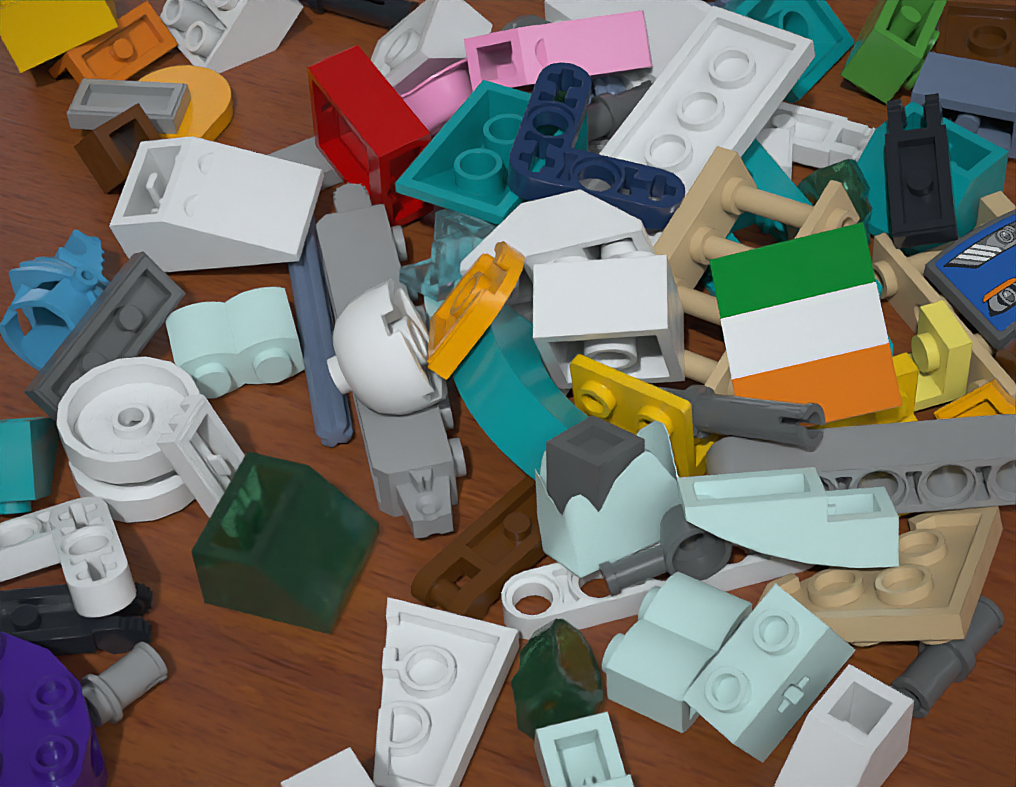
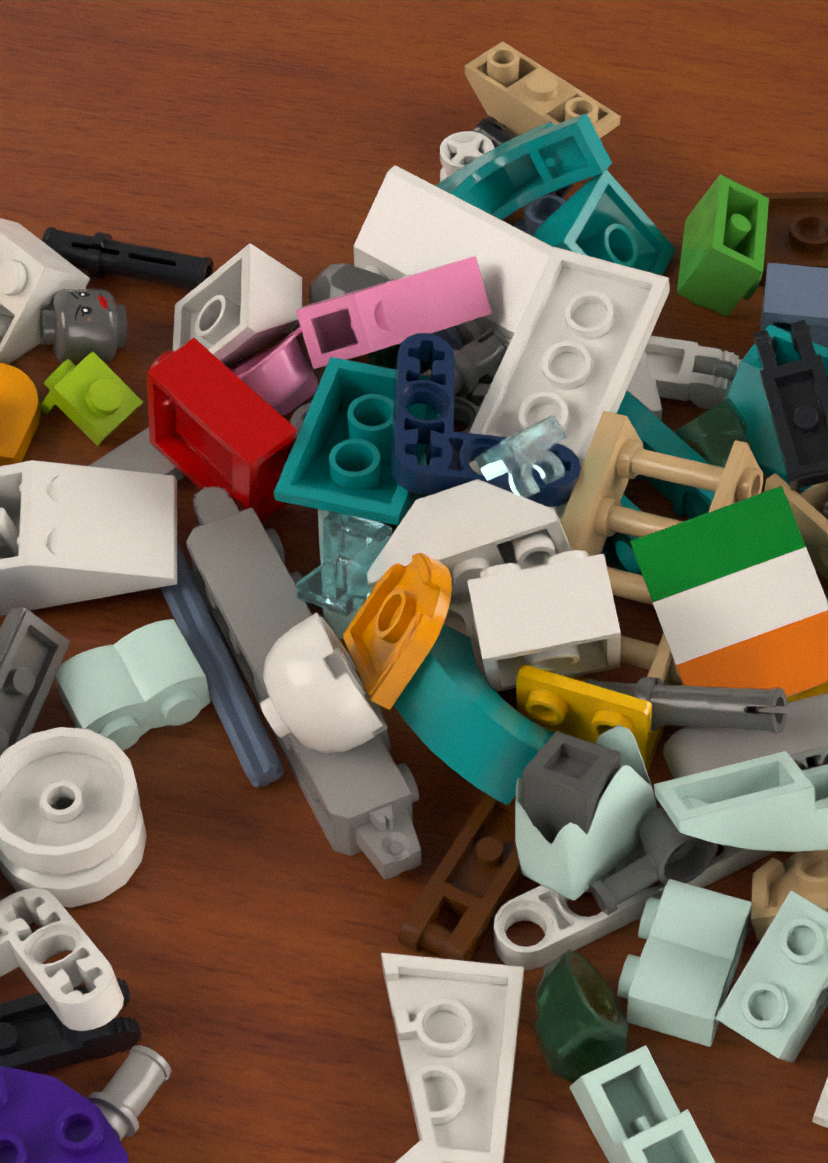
camera: 15 degrees left, 5 degrees up
(191, 458) = (160, 837): white tile -> none
(274, 103) = (90, 397): none -> lime bracket
(283, 545) = (258, 913): clear green slope -> none
(286, 45) = (84, 323): none -> dark grey head
(626, 166) = (522, 453): none -> clear light blue tile

